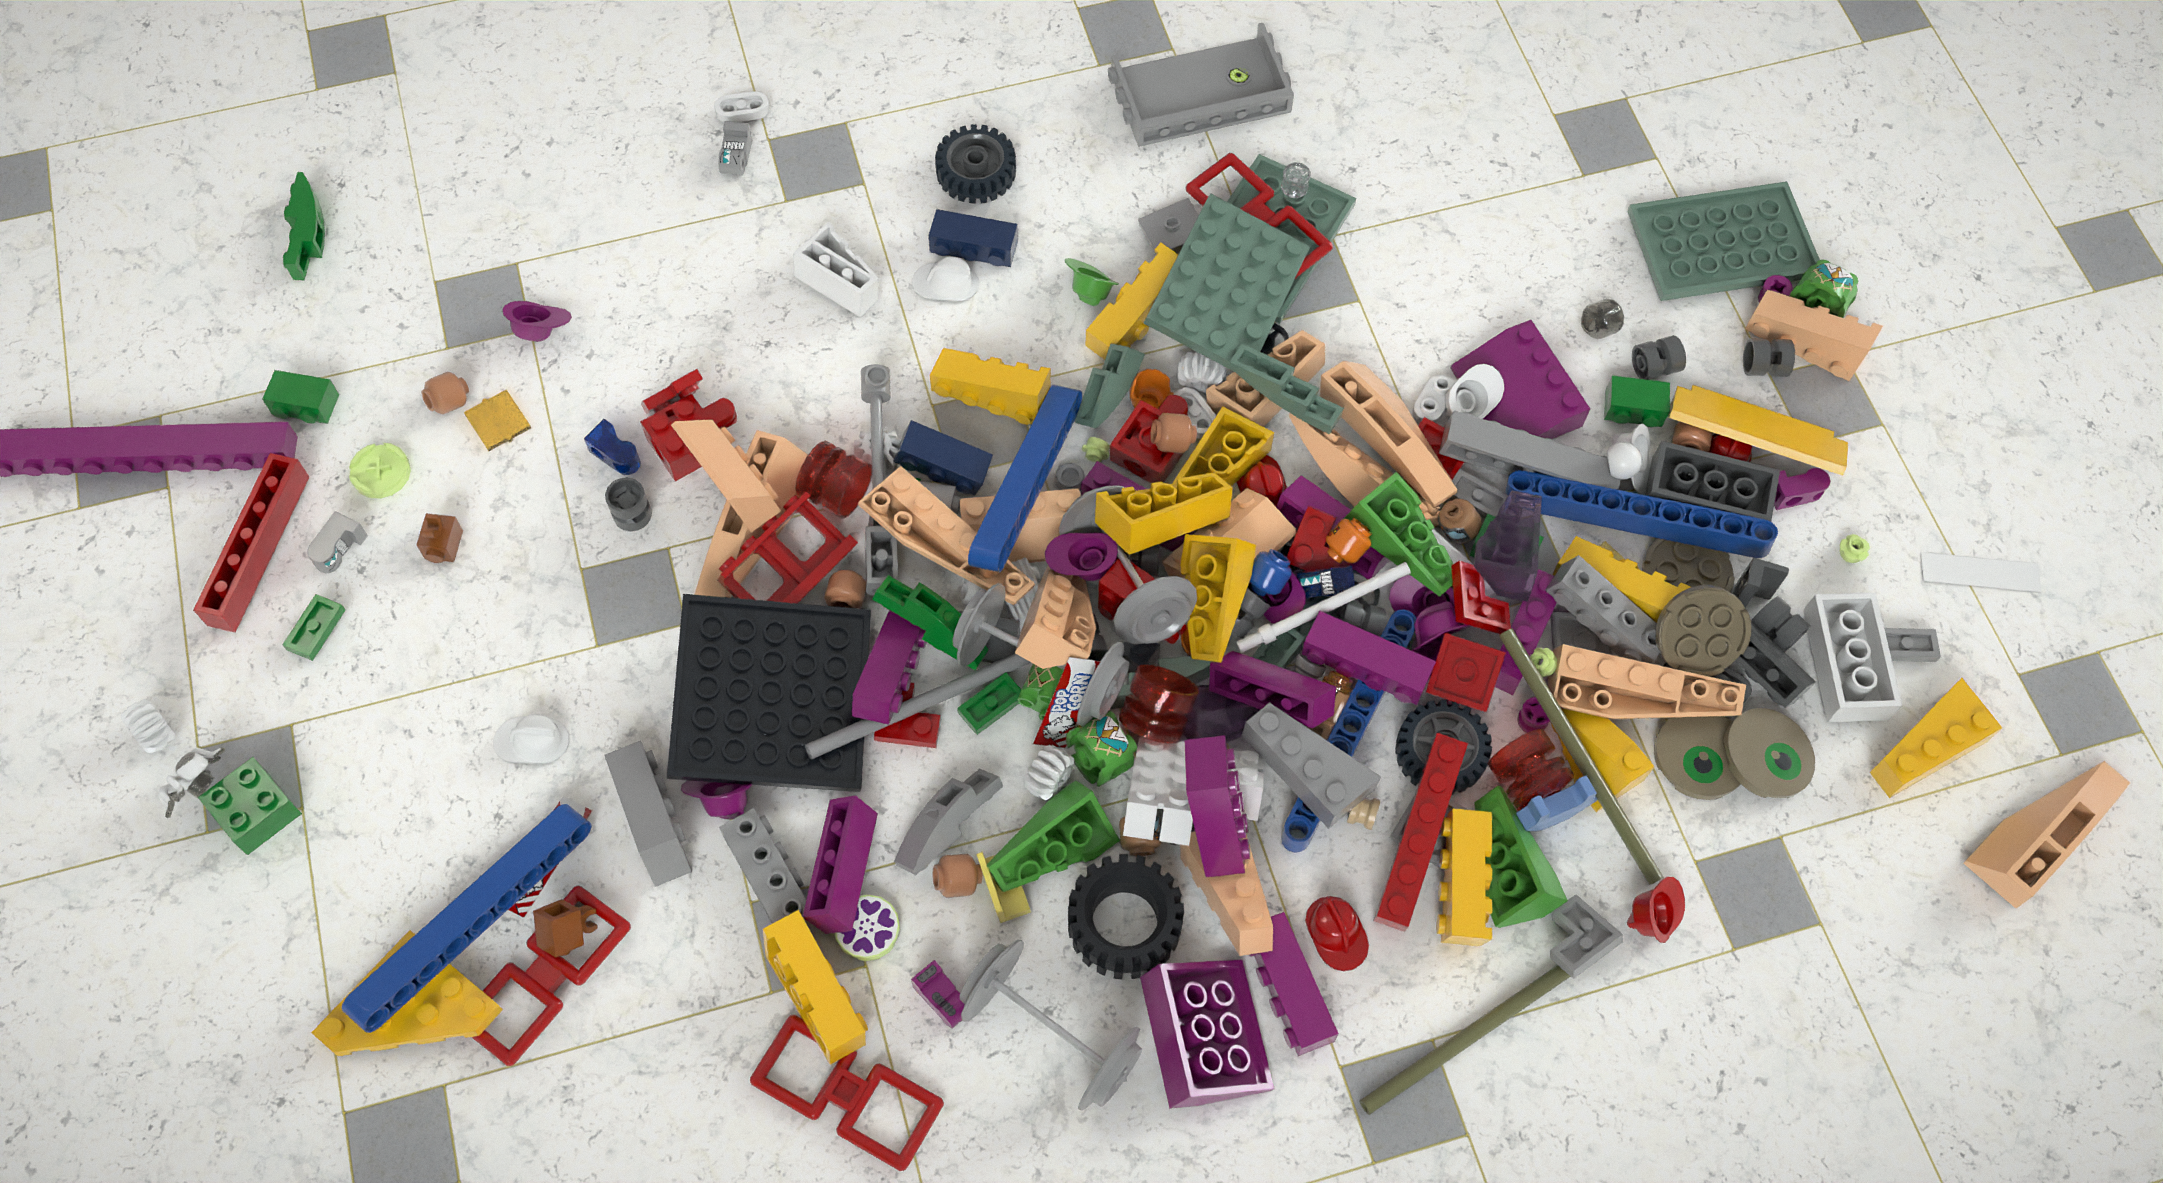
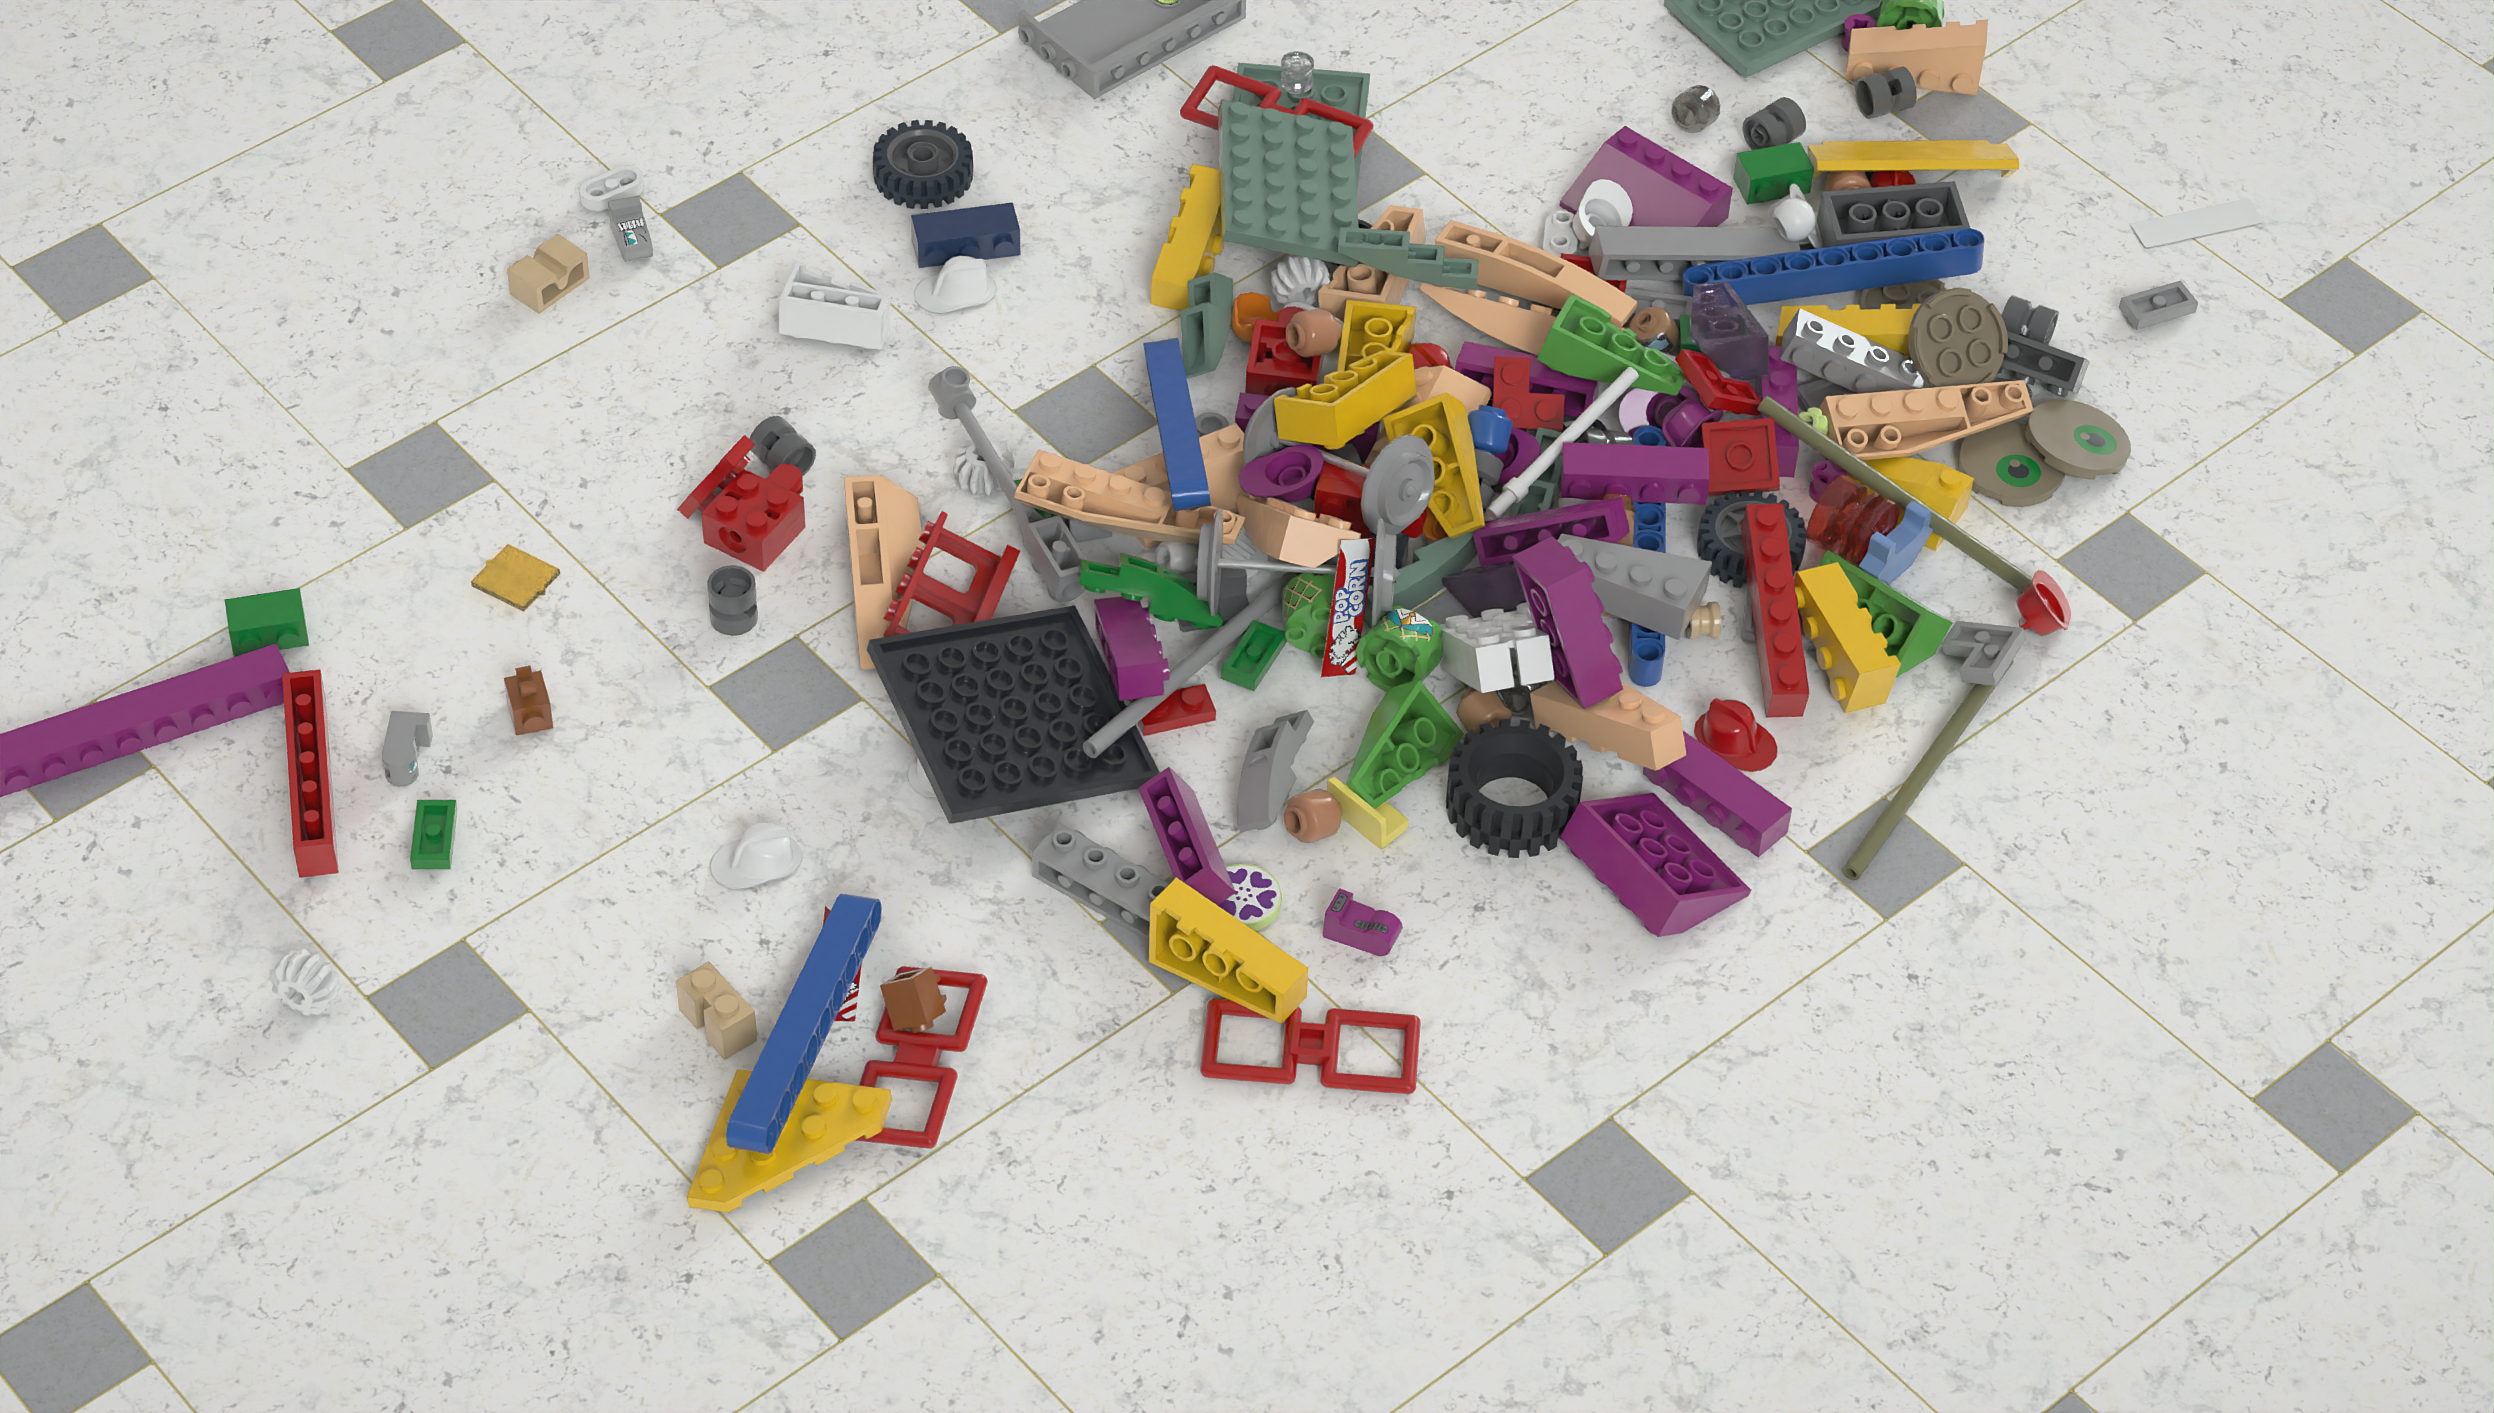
camera: 25 degrees left, 15 degrees down
(191, 777) = (401, 1003): animal -> none
(249, 806) = (476, 1017): green brick -> none
(307, 226) = (152, 453): green slope -> none
(379, 470) = (406, 667): yellowish green tile -> none
(423, 882) = (711, 1001): none -> tan brick
(445, 393) = (441, 565): nougat head -> none
(534, 321) = (504, 466): magenta piece -> none
(611, 450) = (676, 558): clear blue leg -> none
(648, 812) = (942, 870): light grey wedge -> none
(656, 166) = (549, 275): none -> tan brick
(719, 799) = (1013, 835): magenta piece -> none
(729, 471) = (844, 519): light nougat slope -> none
(737, 380) = (780, 443): none -> dark grey wheel
(834, 479) = (964, 499): clear red wheel -> none
(845, 590) = (1029, 596): nougat head -> none
(943, 458) = (1069, 437): dark blue brick -> none
(990, 977) = (1410, 875): light grey axle -> none
(991, 384) = (1077, 362): yellow wedge -> none
(1049, 772) = (1357, 689): white gear -> none
(1089, 282) = (1127, 240): bright green piece -> none
(1096, 449) = (1225, 391): yellowish green plate -> none
(1158, 704) = (1442, 580): clear red wheel -> none
(1169, 225) = (1174, 159): light grey plate -> none
(1327, 580) = (1553, 420): clear blue leg -> none
(1348, 541) = (1556, 372): orange head -> none
(1759, 580) = (1991, 280): dark grey panel -> none
(1801, 488) = (1984, 199): magenta leg -> none
(1851, 554) = (2063, 239): yellowish green plate -> none
(1852, 657) = (2114, 328): white brick -> none
(1943, 735) = (2235, 372): yellow wedge -> none
(2041, 836) = (2373, 424): light nougat wedge -> none

